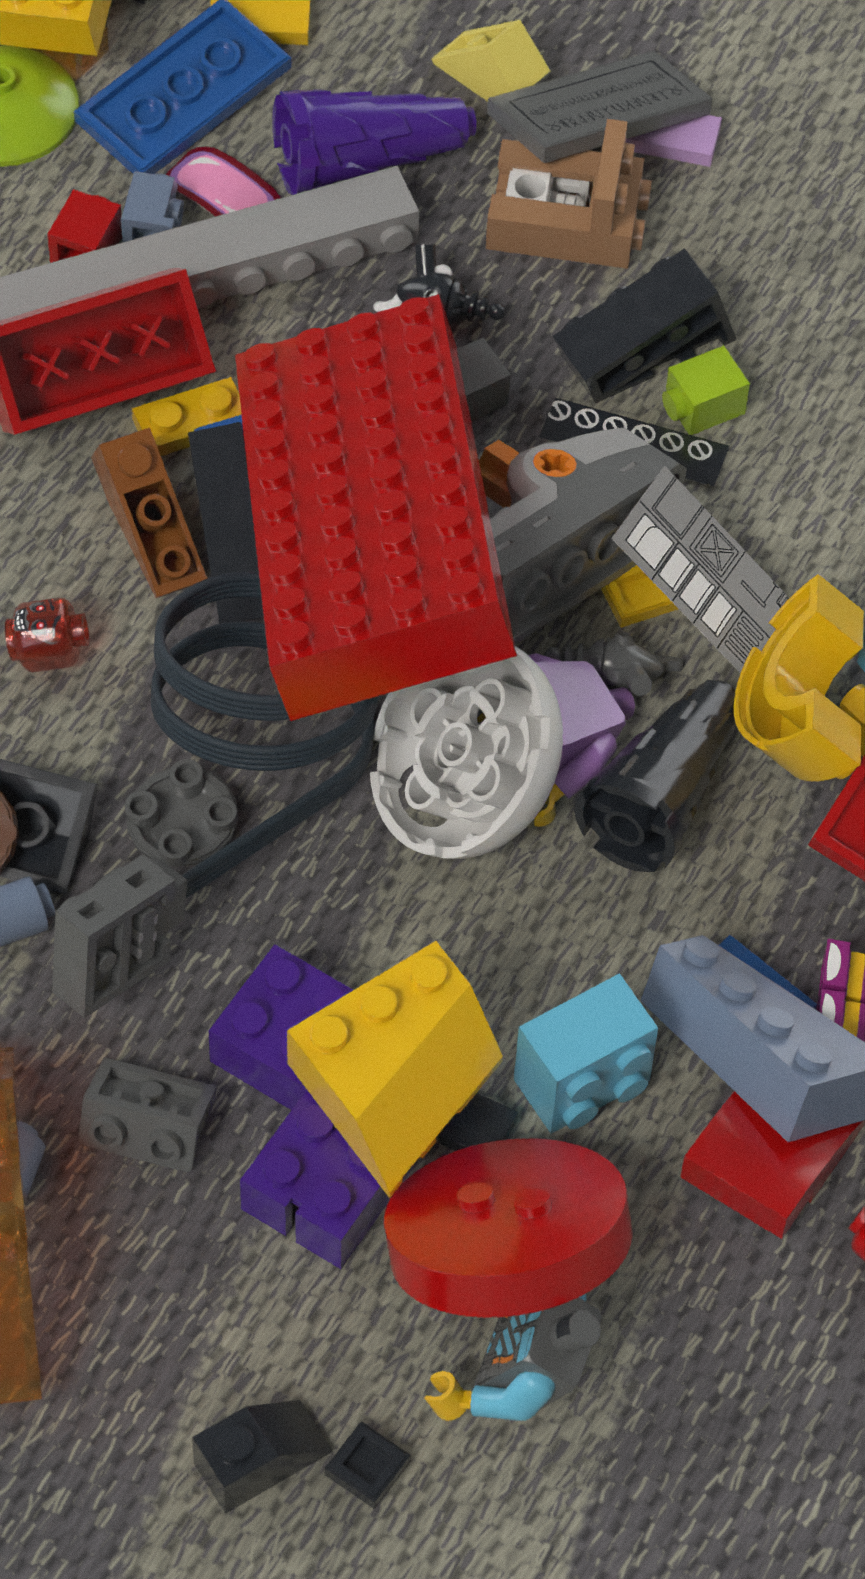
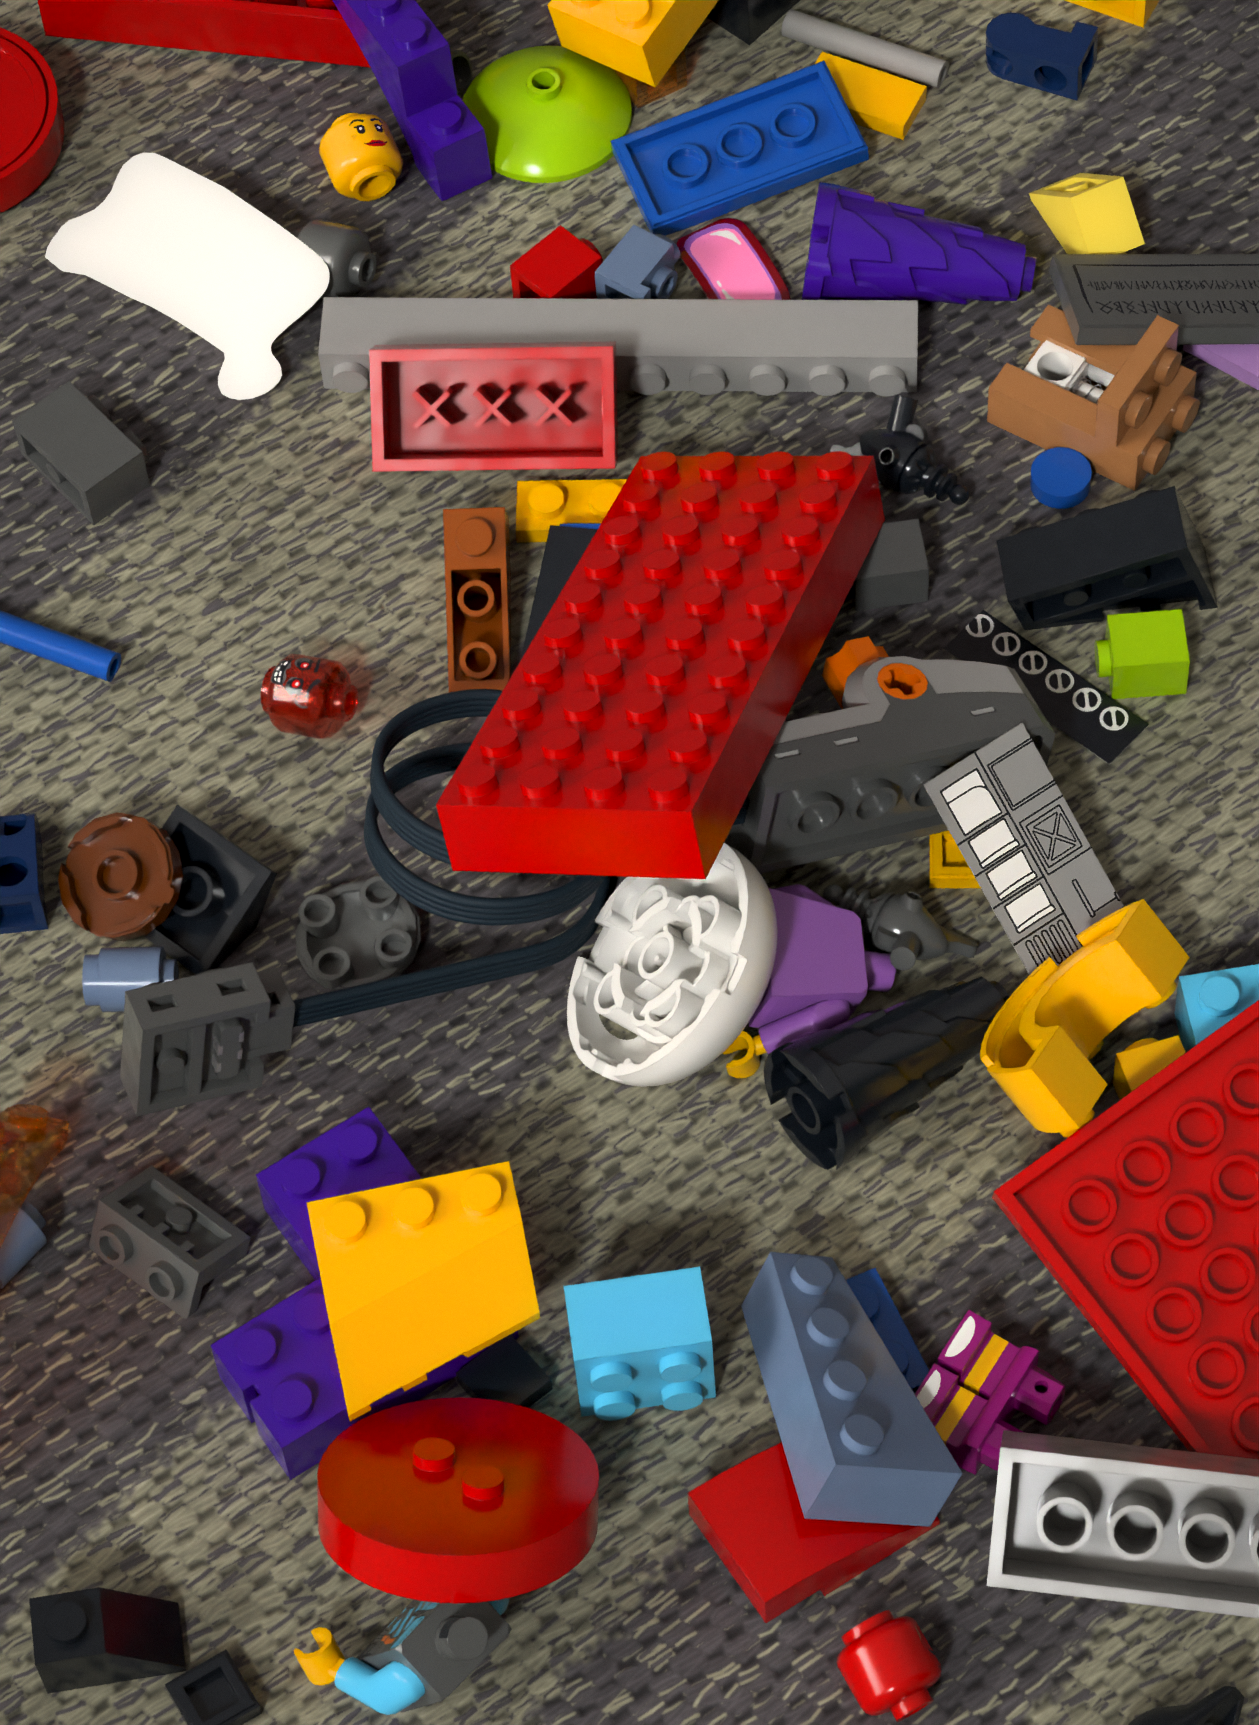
camera: 30 degrees right, 0 degrees up
(568, 275) = (1060, 477): none -> blue tile

